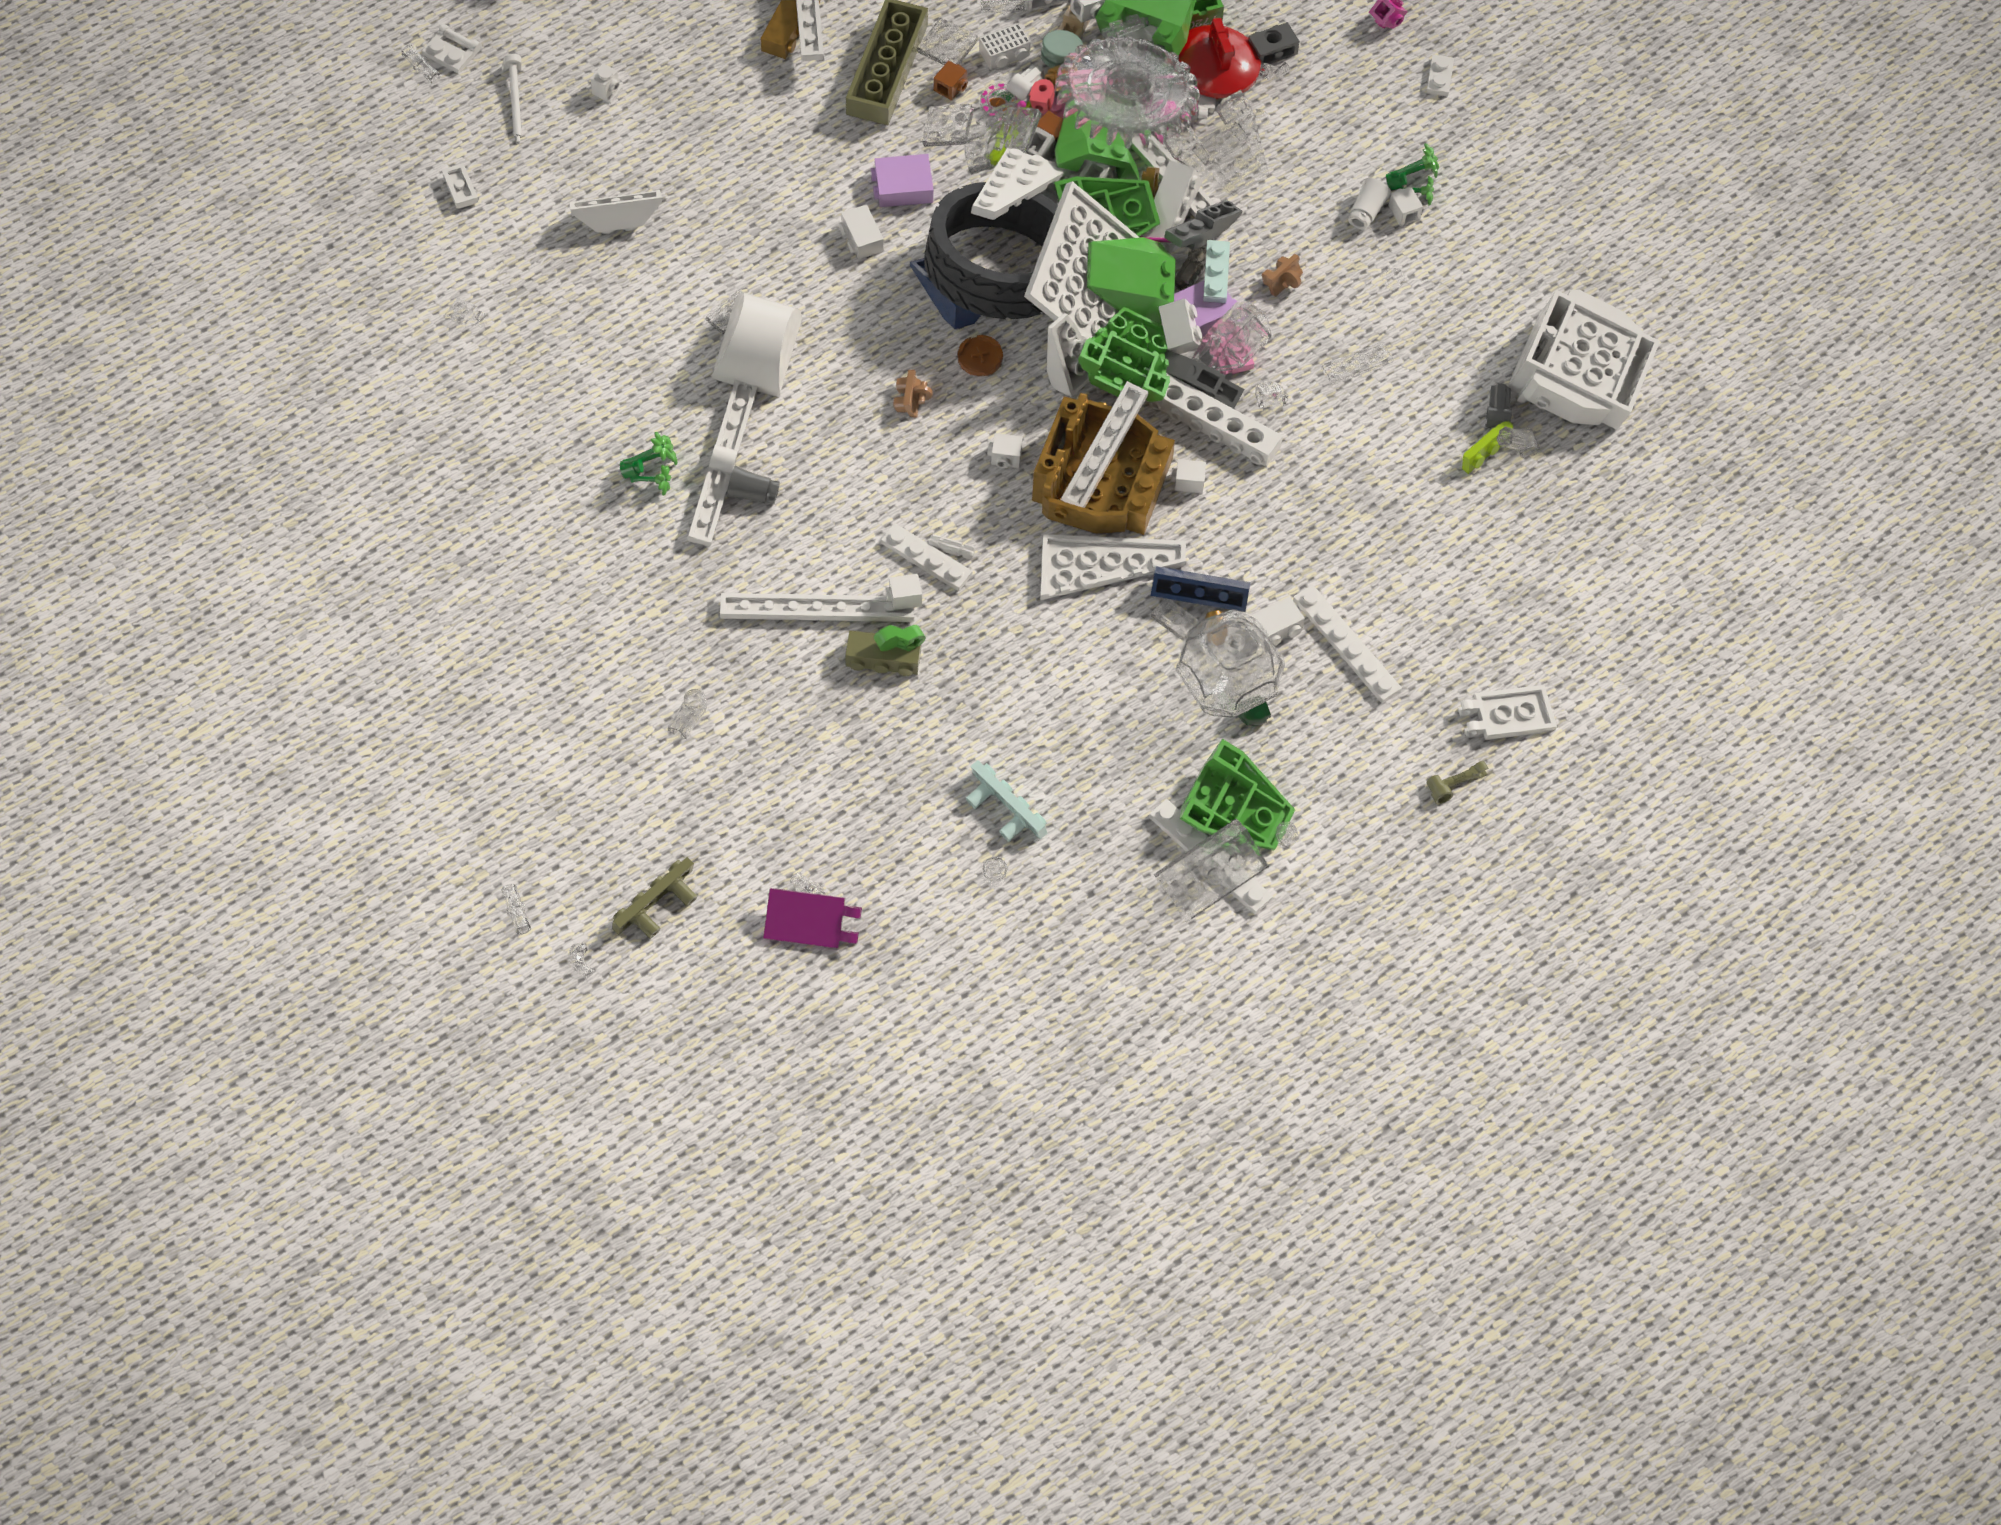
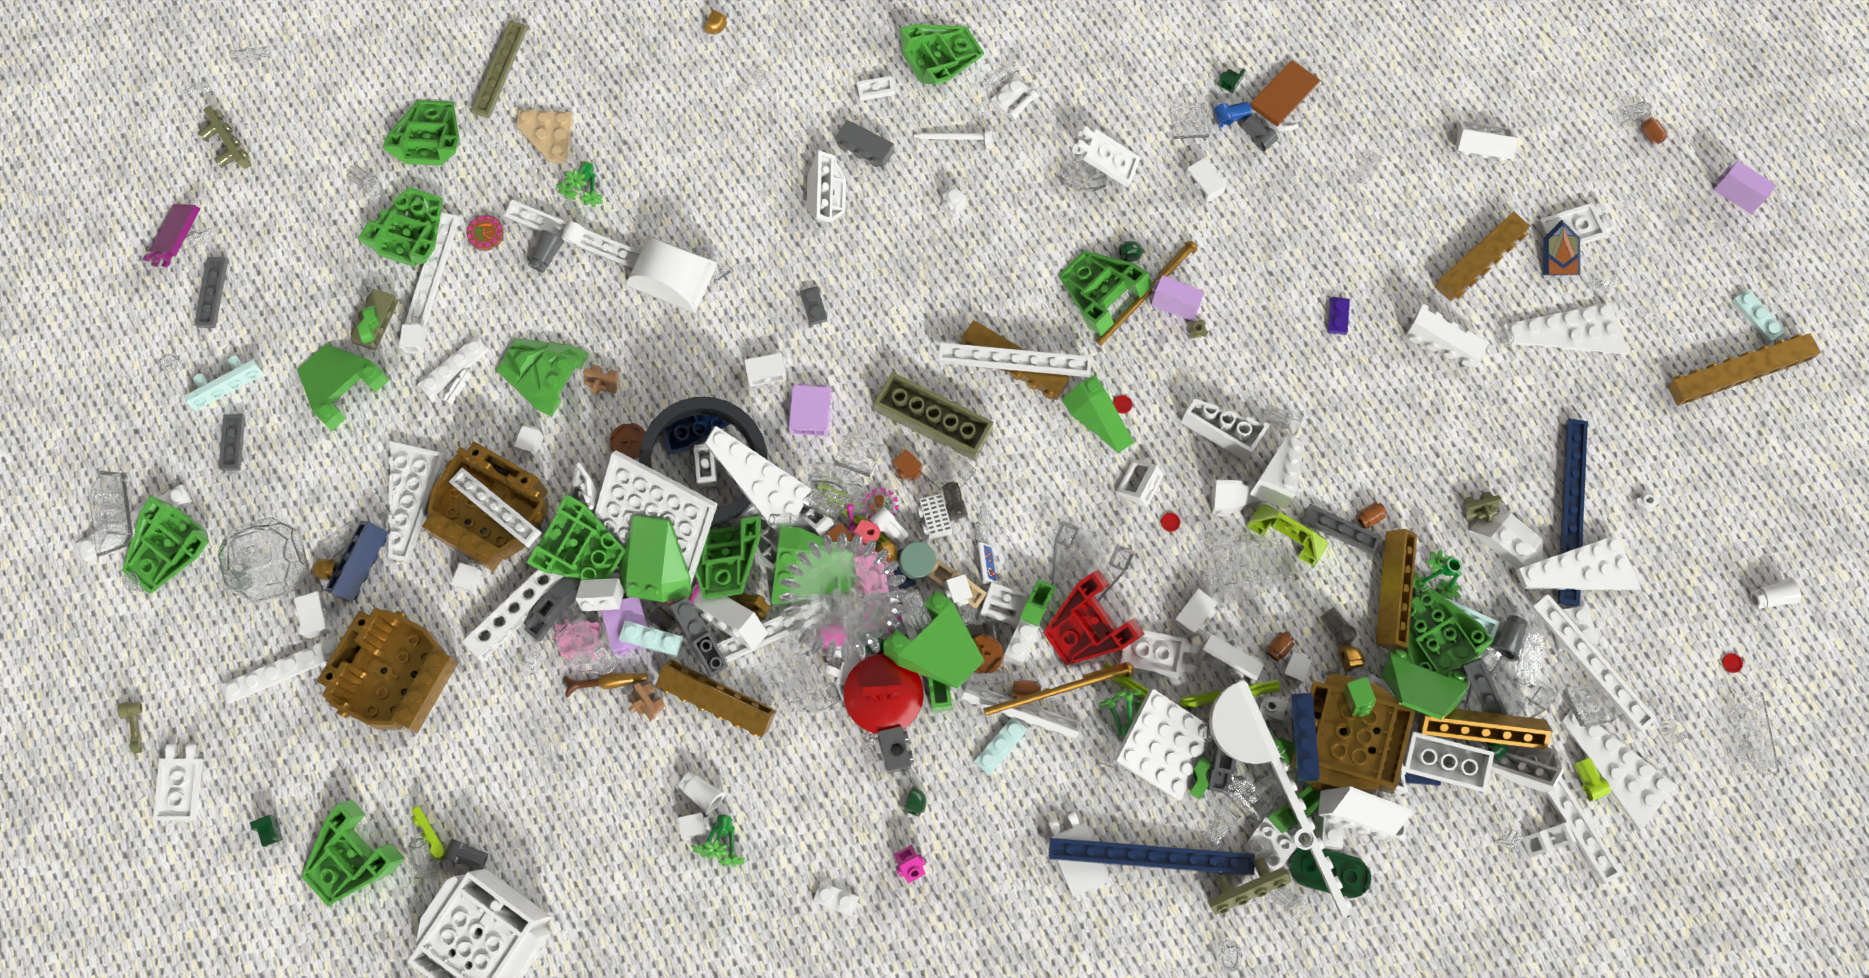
camera: 105 degrees right, 10 degrees up
(389, 370) = (715, 23): none -> pearl gold piece
(405, 124) = (938, 51): none -> bright green wedge
(494, 598) = (499, 69): none -> olive plate
(542, 182) = (864, 144): none -> dark grey brick
(579, 526) = (547, 132): none -> tan plate
(606, 652) = (425, 134): none -> bright green wedge
(736, 564) = (485, 232): none -> dark orange tile
(751, 638) = (406, 229): none -> bright green wedge
(767, 204) = (813, 306): none -> dark grey plate
(883, 853) = (211, 292): none -> dark grey plate
(911, 459) = (540, 370): none -> bright green wedge
(971, 682) = (332, 374): none -> bright green wedge
(981, 26) = (954, 504): none -> clear smoke piece
(1001, 258) = (705, 467): none -> white brick
(1051, 156) = (788, 520): none -> clear pin
(1081, 772) = (231, 442): none -> dark grey plate
(1263, 208) = (715, 698): none -> pearl gold brick
(1266, 304) = (607, 681): none -> pearl gold piece
(1321, 22) = (915, 802): none -> dark green piece
(1351, 537) = (403, 647): none -> pearl gold piece
(1530, 606) = (267, 829): none -> dark green panel
(1544, 523) = (342, 860): none -> bright green wedge

